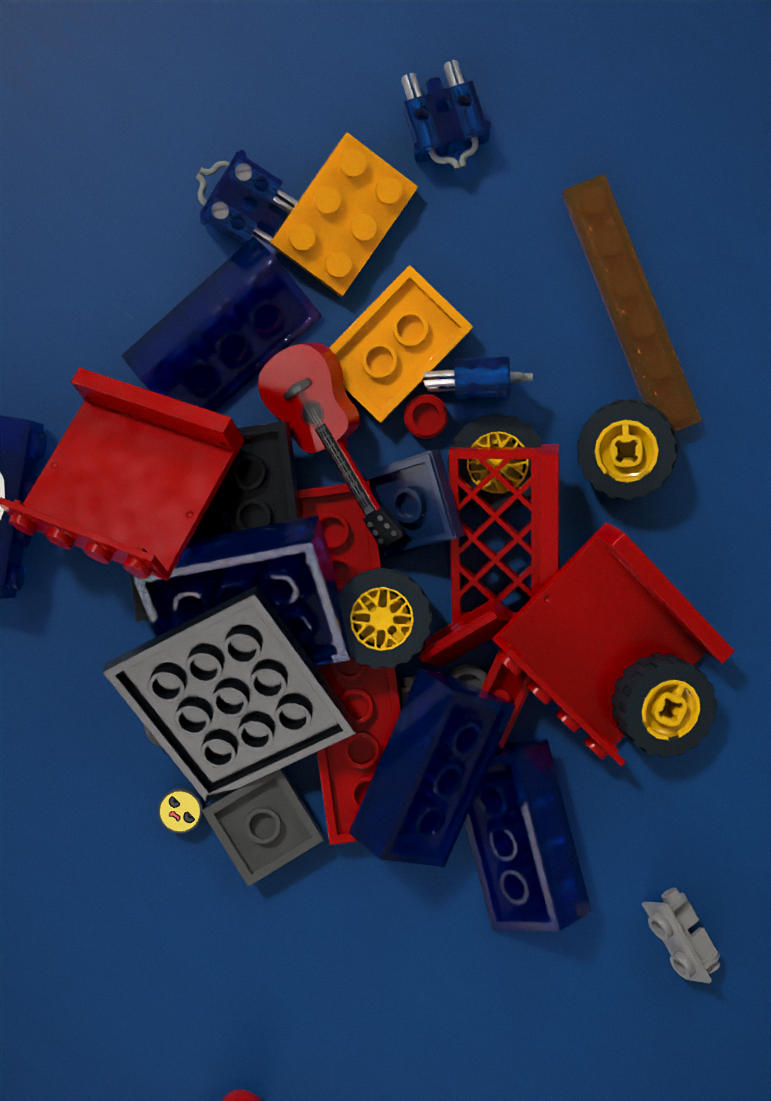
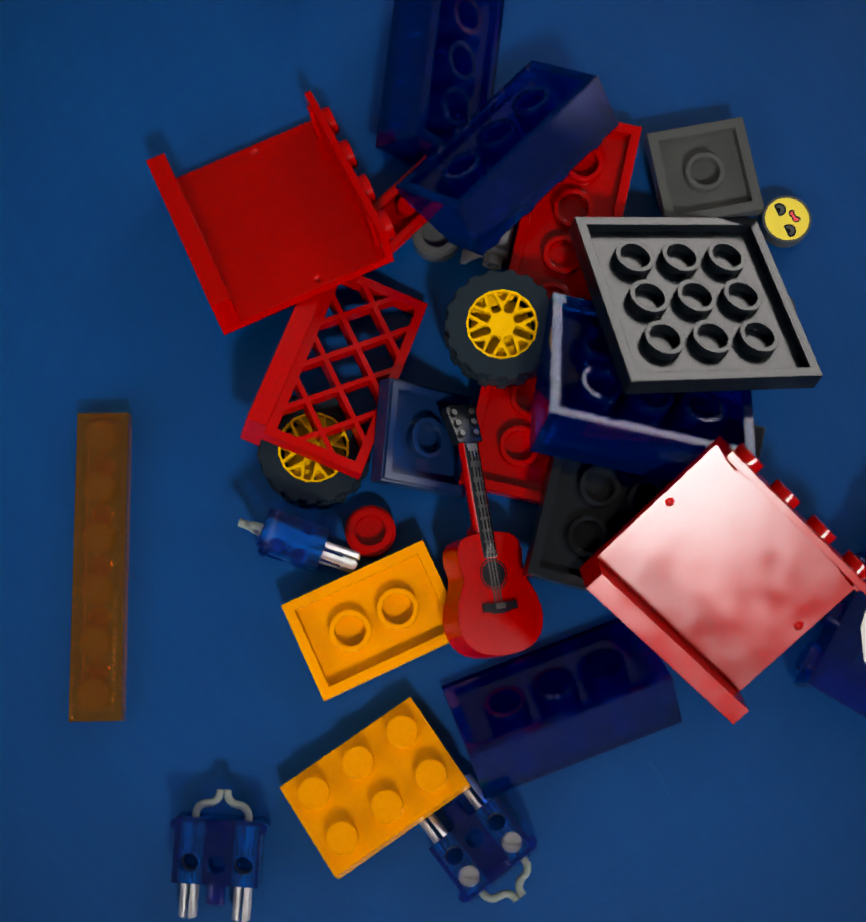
camera: 165 degrees left, 10 degrees down
(465, 633) = (415, 287): red slope -> none
(627, 449) = (169, 409): black wheel -> none
(664, 705) = (263, 143): black wheel -> none

